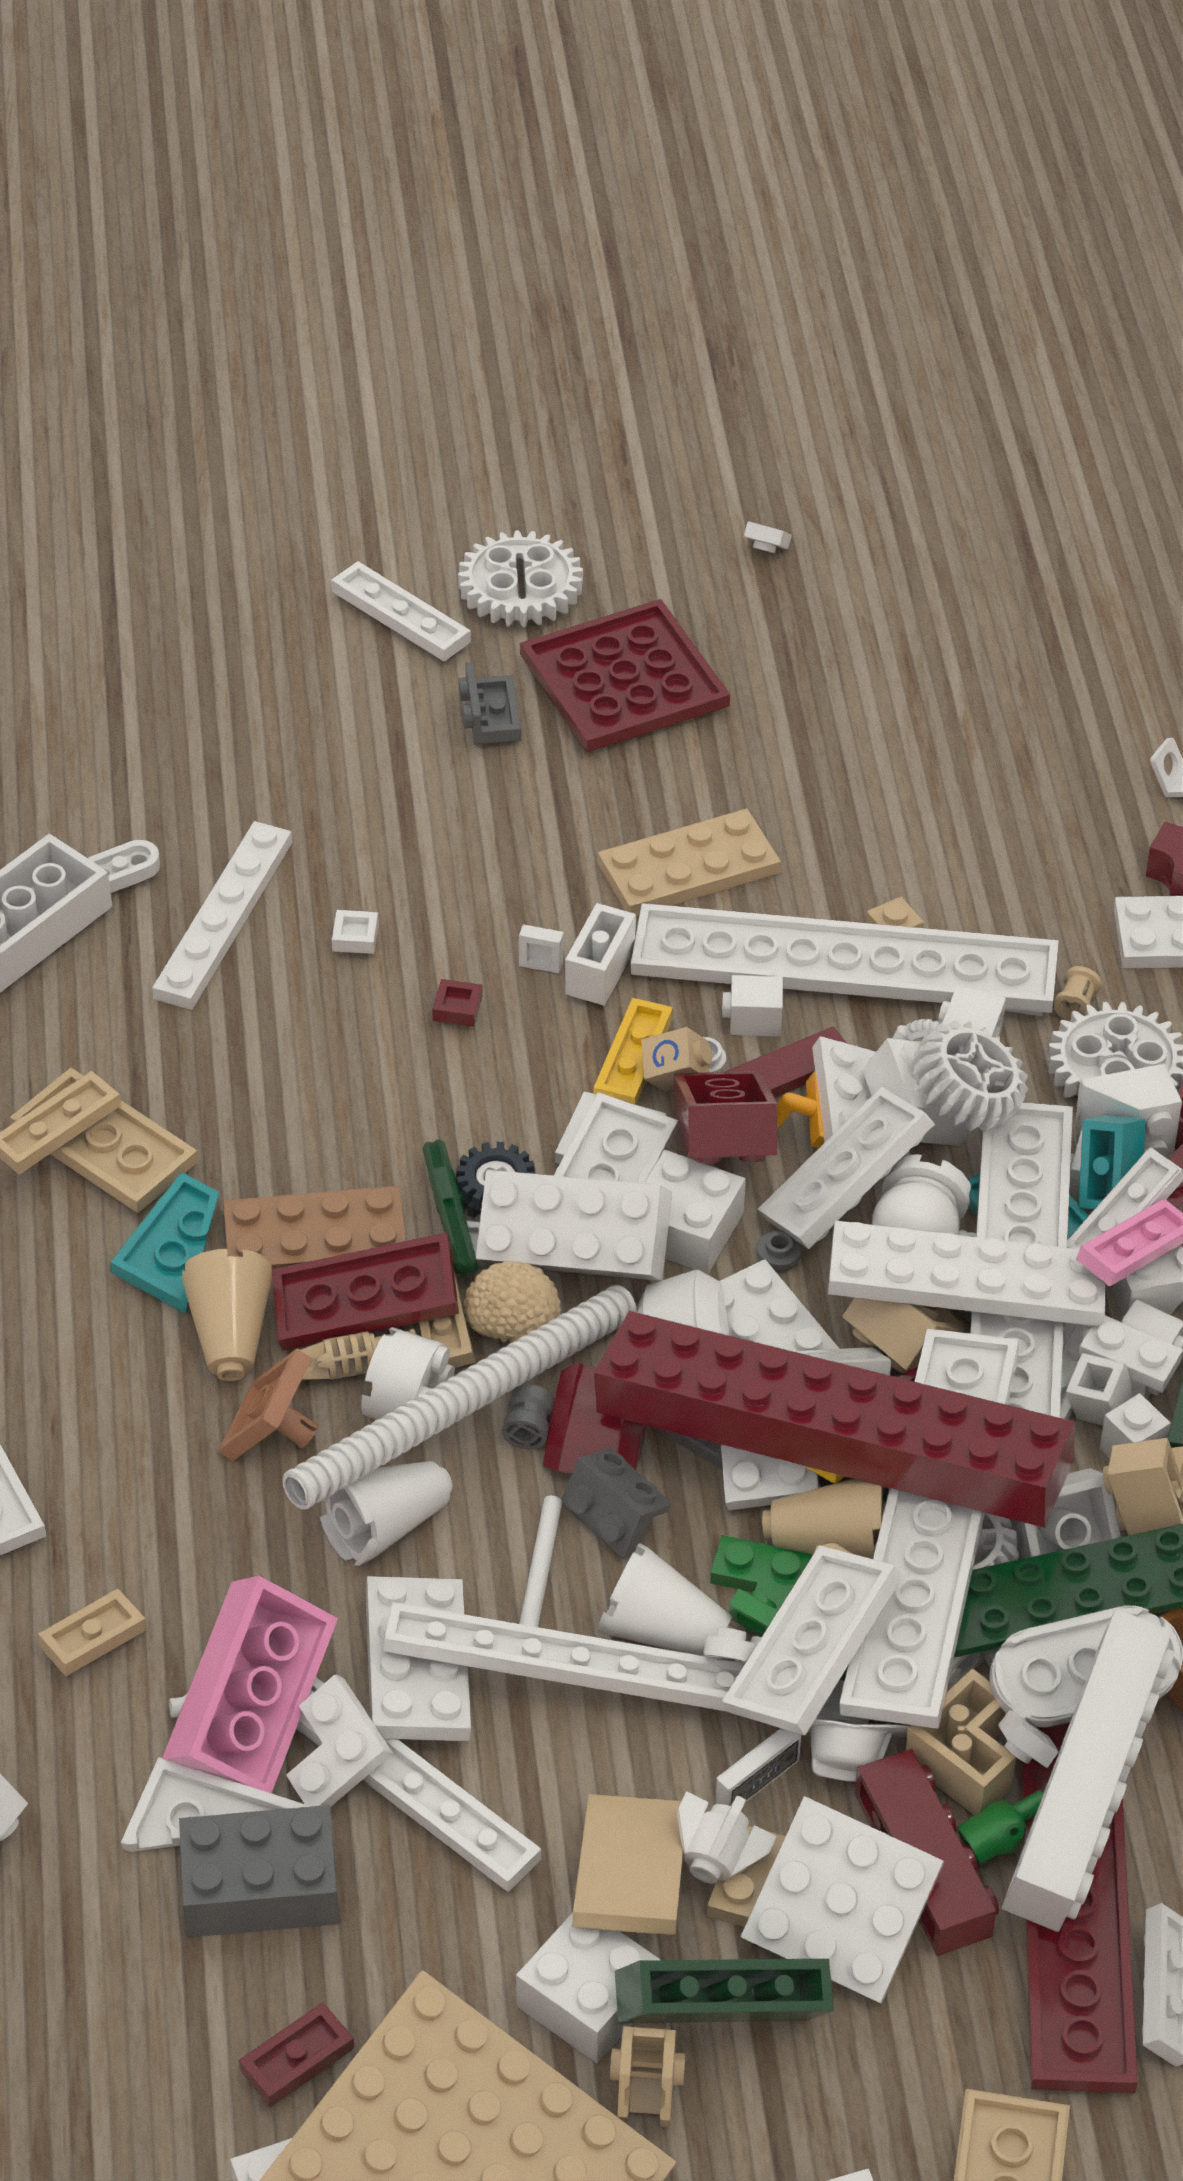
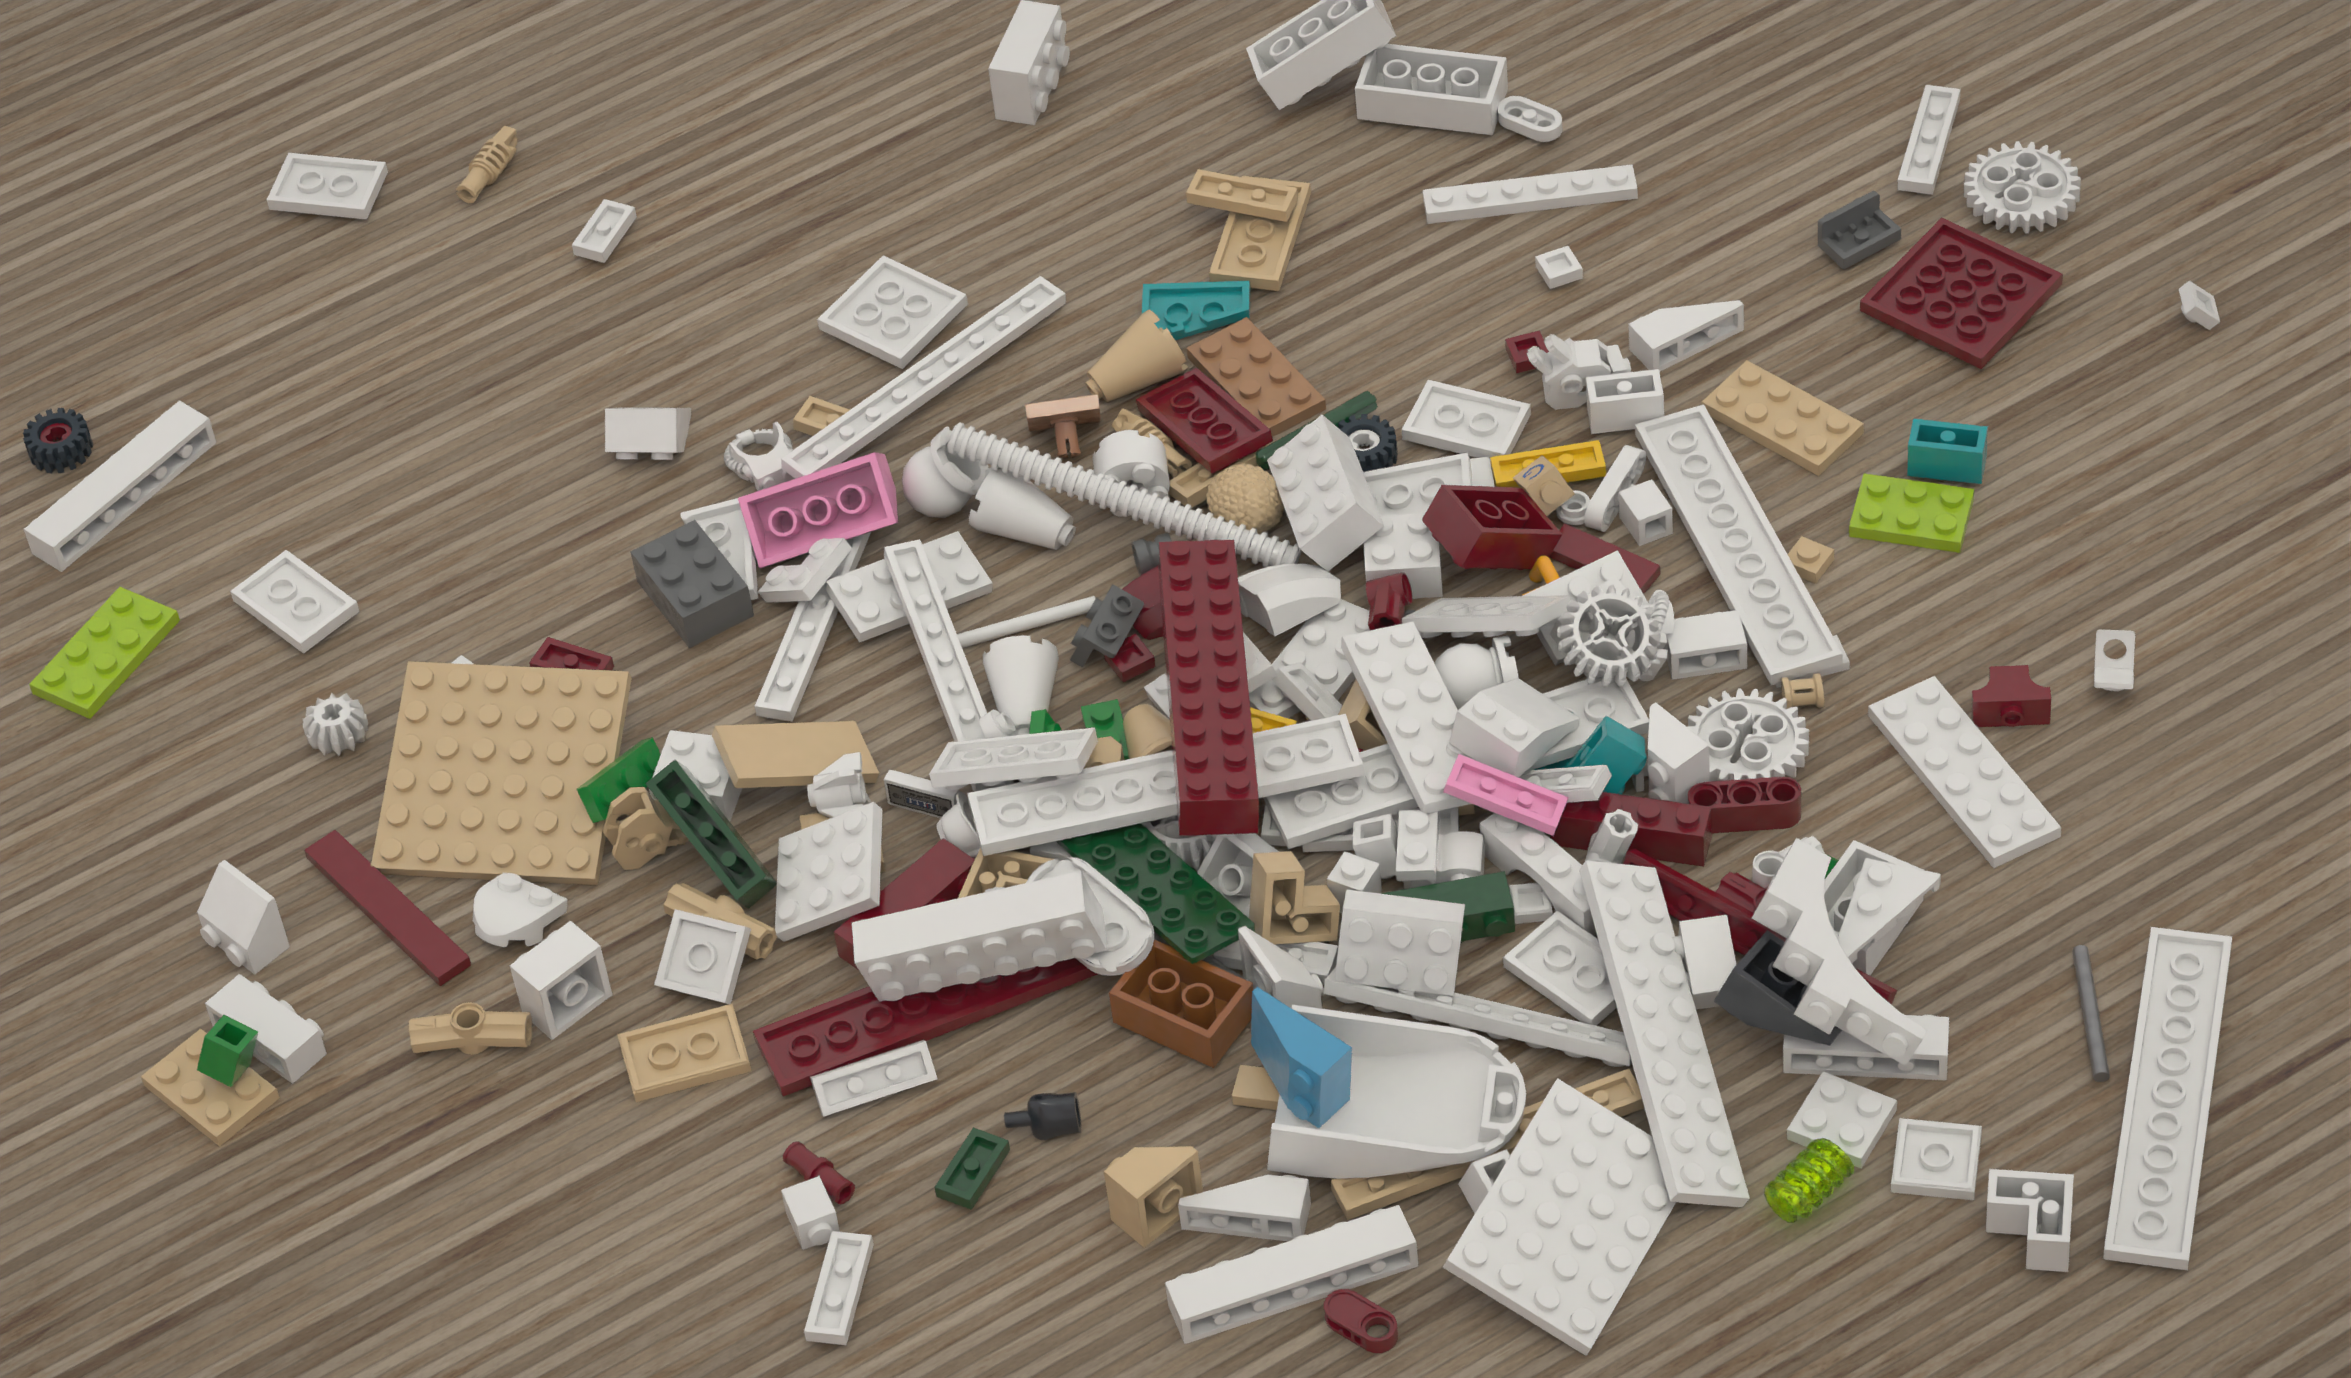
camera: 70 degrees right, 0 degrees up
(85, 1748) = (762, 469): none -> white piece
(104, 1522) = (925, 379): none -> white plate
(291, 1543) = (939, 481): none -> white tile
(520, 1088) = (1465, 421): none -> white plate
(523, 883) = (1681, 332): none -> white slope
(531, 973) = (1567, 368): none -> white hinge
(559, 2058) = (627, 771): none -> green plate
(677, 1491) = (1131, 659): none -> dark red plate
(703, 1013) = (1622, 475): none -> white beam
(749, 1241) = (1388, 600): none -> dark red piece
(829, 2050) = (723, 908): none -> tan piece
(841, 762) = (1947, 451): none -> teal brick
(883, 828) = (1911, 513): none -> lime plate
(891, 2085) = (702, 956): none -> white plate
(1048, 1201) = (1510, 726): none -> white slope

